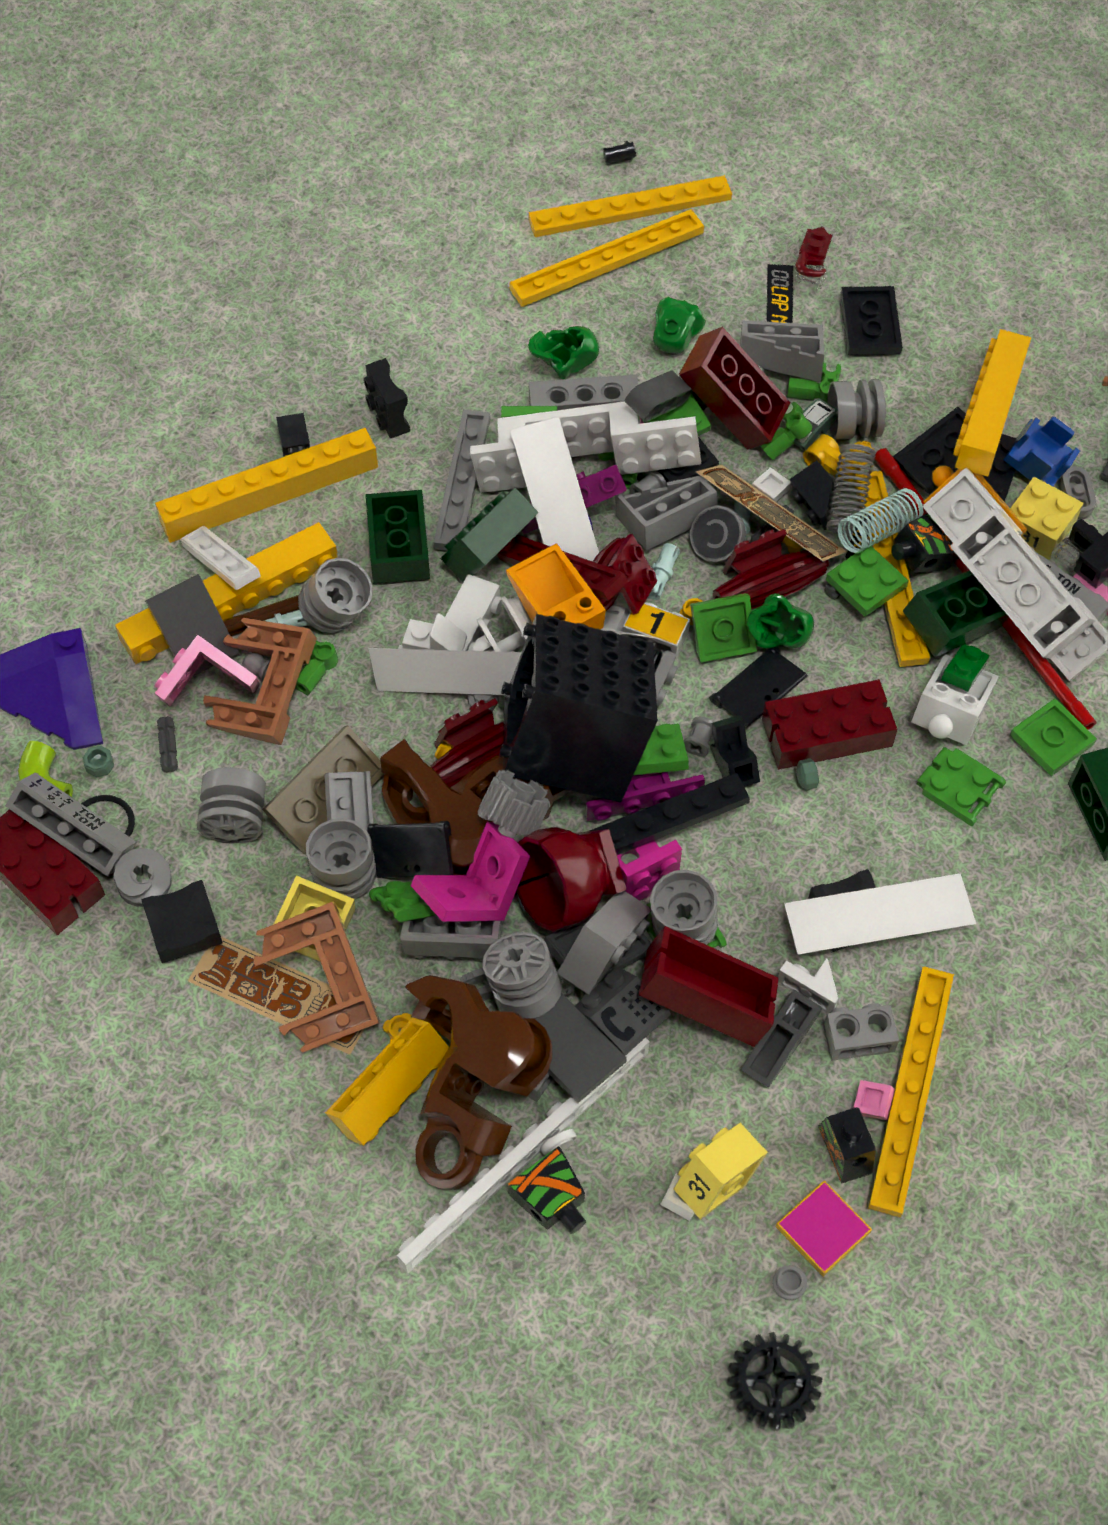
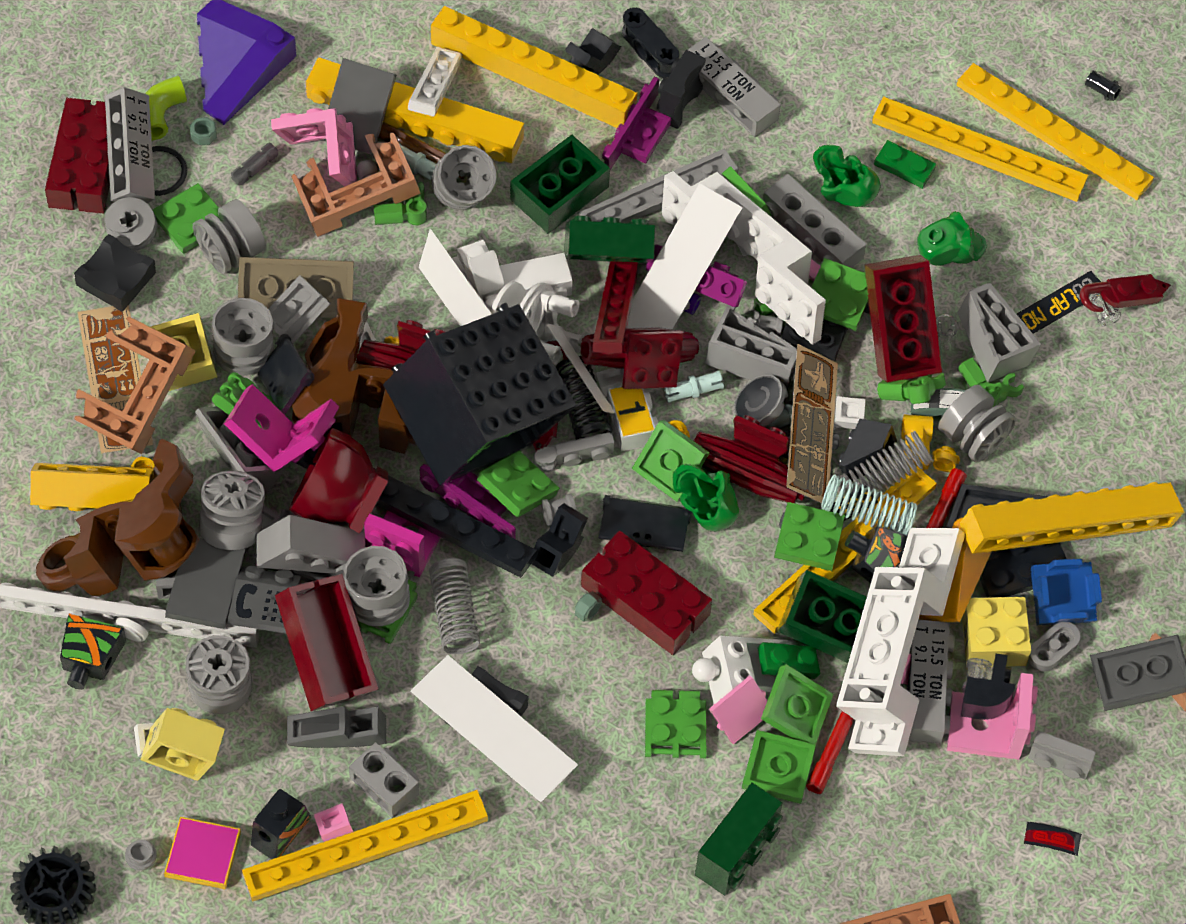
camera: 50 degrees right, 0 degrees up
(172, 828) = (180, 213): none -> bright green plate
(319, 394) = (649, 41): none -> black piece
(396, 451) = (641, 131): none -> magenta bracket
(415, 368) = (735, 89): none -> light grey brick
(514, 805) = (359, 406): light grey brick -> none
(554, 588) = (566, 312): light orange slope -> none
(577, 311) = (904, 164): none -> green plate
(658, 395) = (828, 263): dark grey beam -> none
(666, 1113) = (220, 689): none -> light grey wheel
(767, 895) = (449, 637): none -> light grey piece
(817, 988) = (401, 726): white slope -> none
(871, 320) = (1096, 382): black plate -> none
(991, 726) = (740, 709): none -> bright pink piece
(1012, 687) = (797, 705): none -> bright green plate

